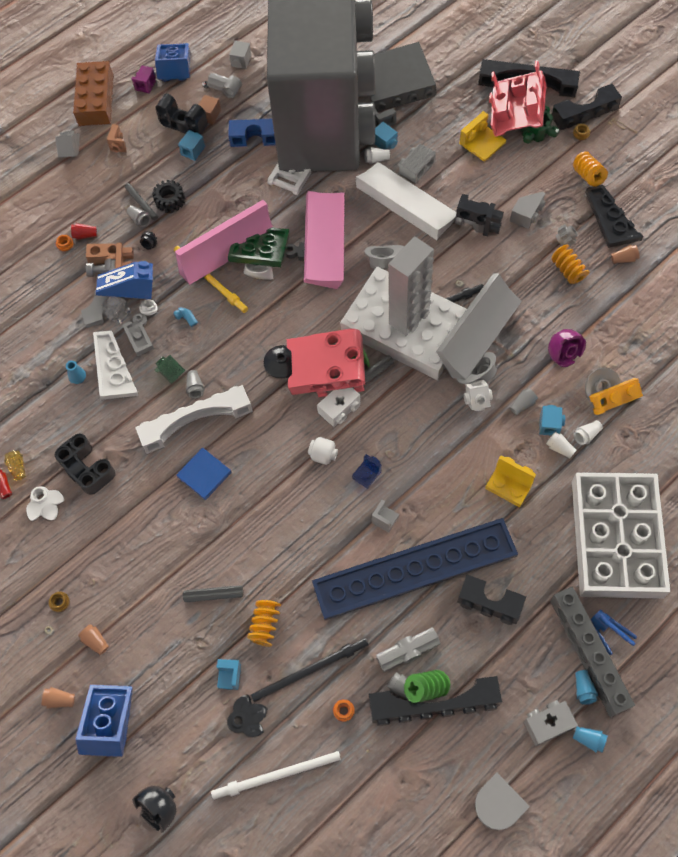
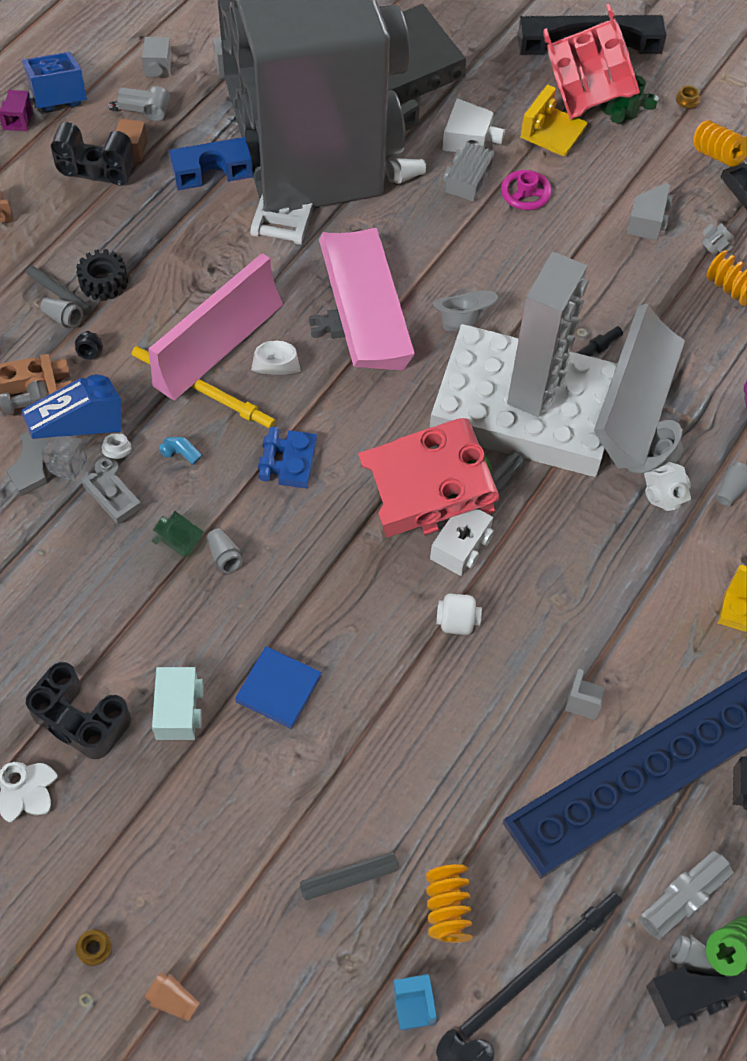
camera: 20 degrees left, 5 degrees down
(75, 373) = (23, 568): dark azure cone -> none
(112, 372) = (81, 552): white wing -> none
(140, 471) = (176, 703): none -> light aqua brick
(157, 431) = (294, 567): white arch -> none
(191, 145) = (118, 195): dark azure brick -> none
(254, 334) = (297, 457): none -> blue plate
(261, 249) = (278, 328): dark green plate -> none
(278, 368) = (350, 502): black dish -> none
(340, 704) = (623, 1010): orange plate -> none
(367, 471) = (536, 631): clear blue bracket -> none
(385, 137) = (416, 142): dark azure brick -> none
(406, 200) = (468, 226): white arch -> none
(427, 132) = (470, 125): none -> white torso
(452, 179) = (527, 186): none -> dark pink piece
(479, 215) = (587, 229): black hips -> none
(569, 114) = (667, 74): black arch -> none

